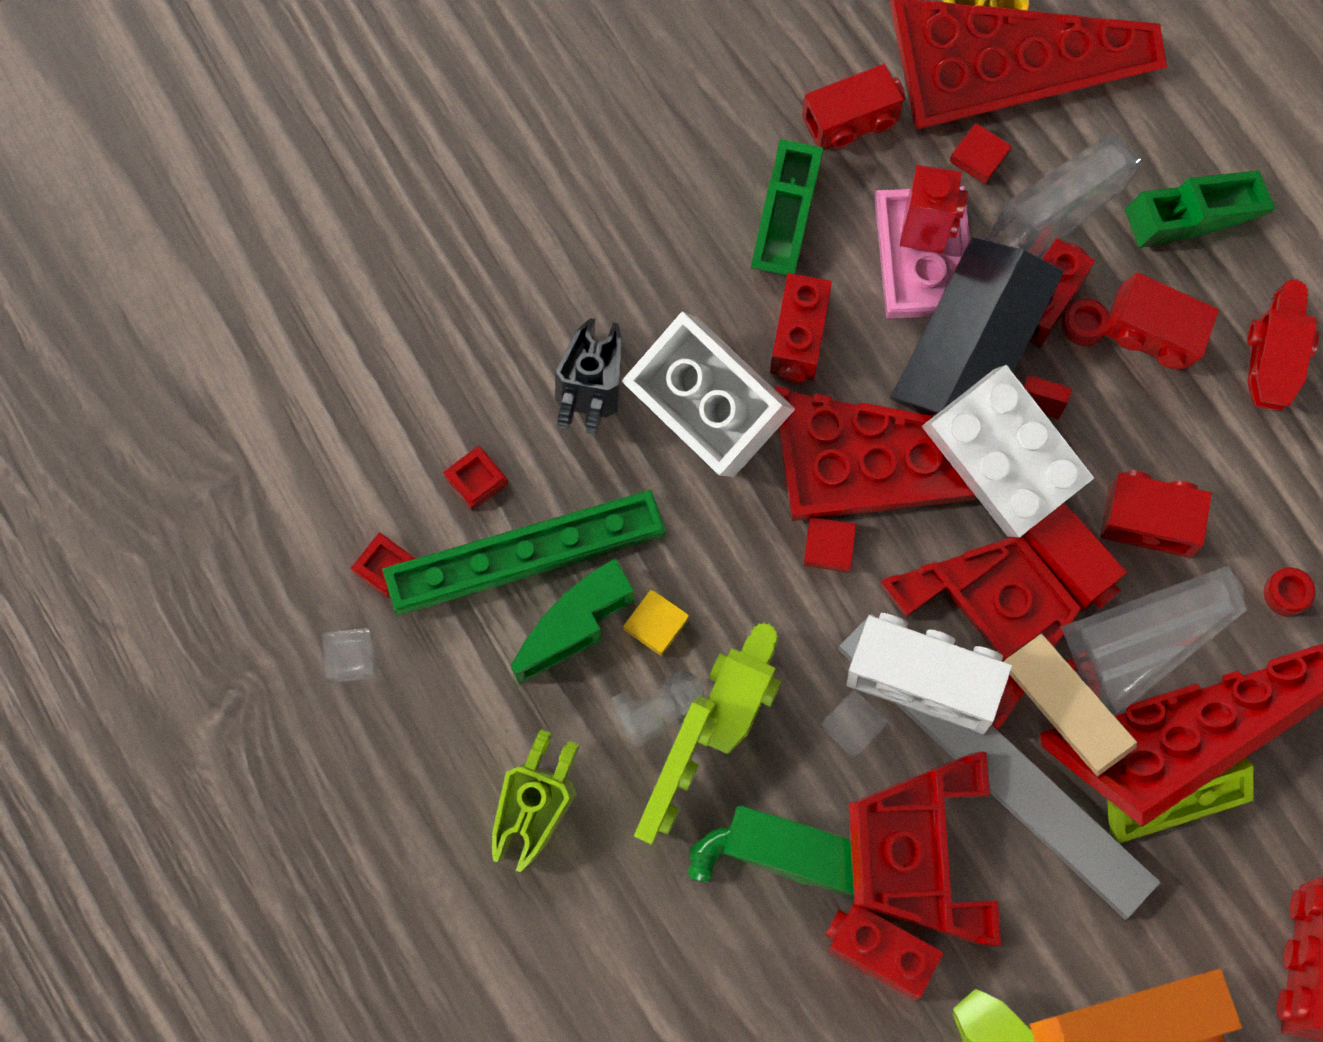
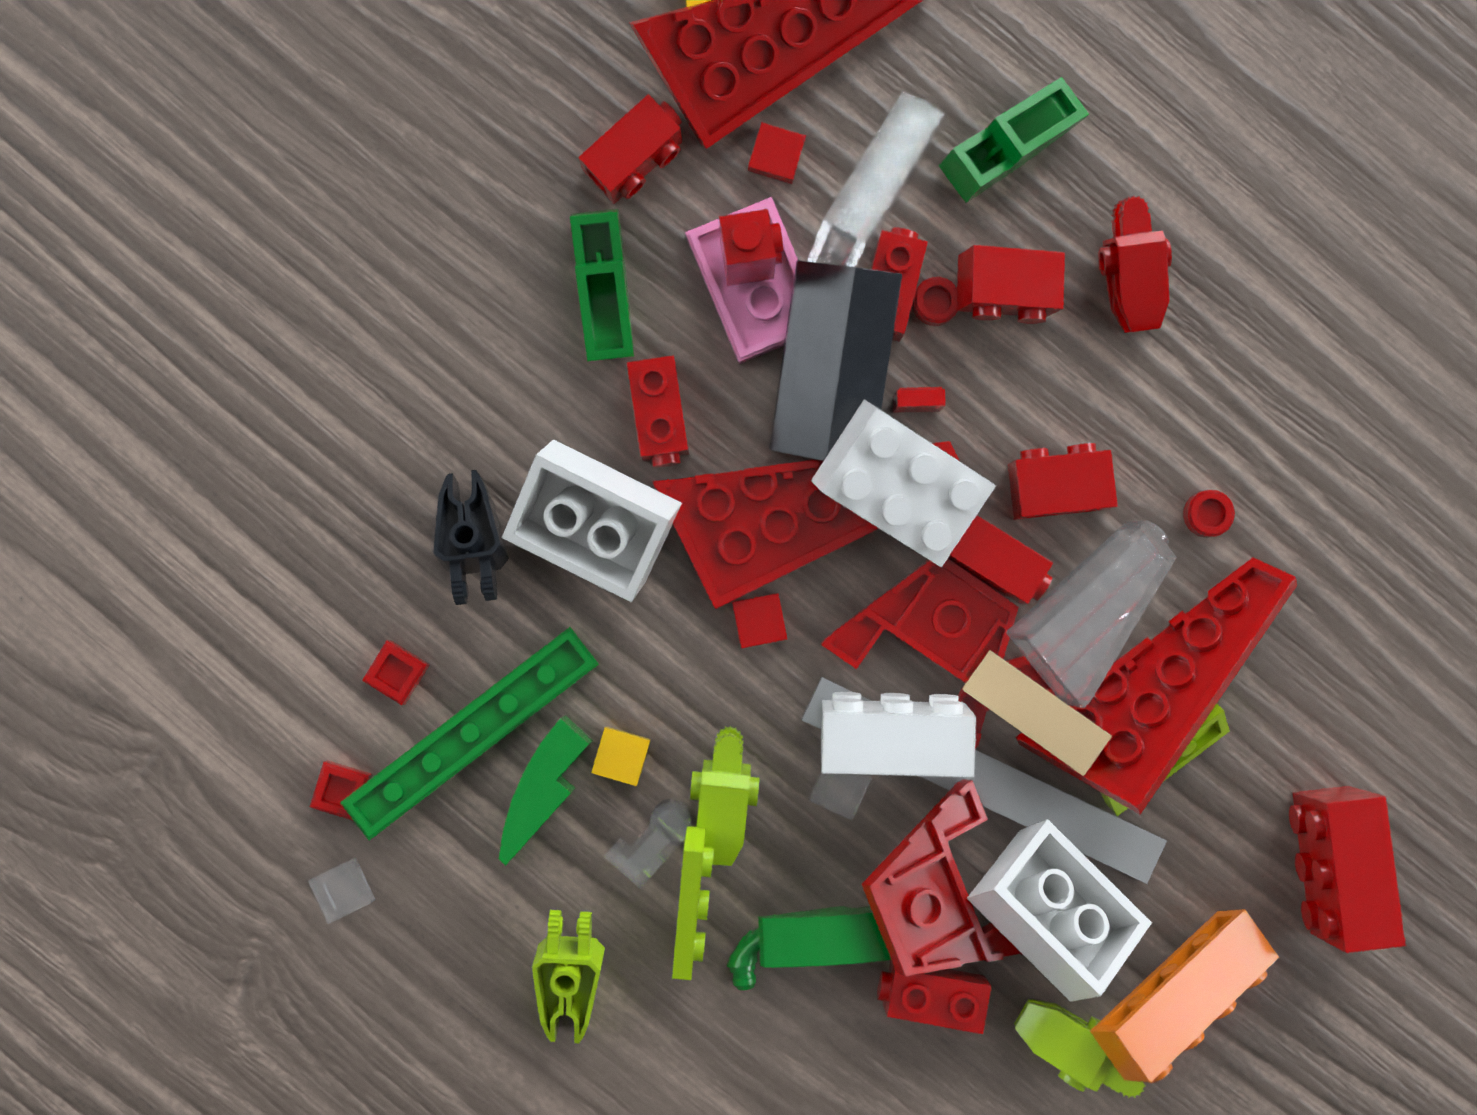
camera: 20 degrees left, 15 degrees up
(1034, 901) = (1060, 911): none -> white brick

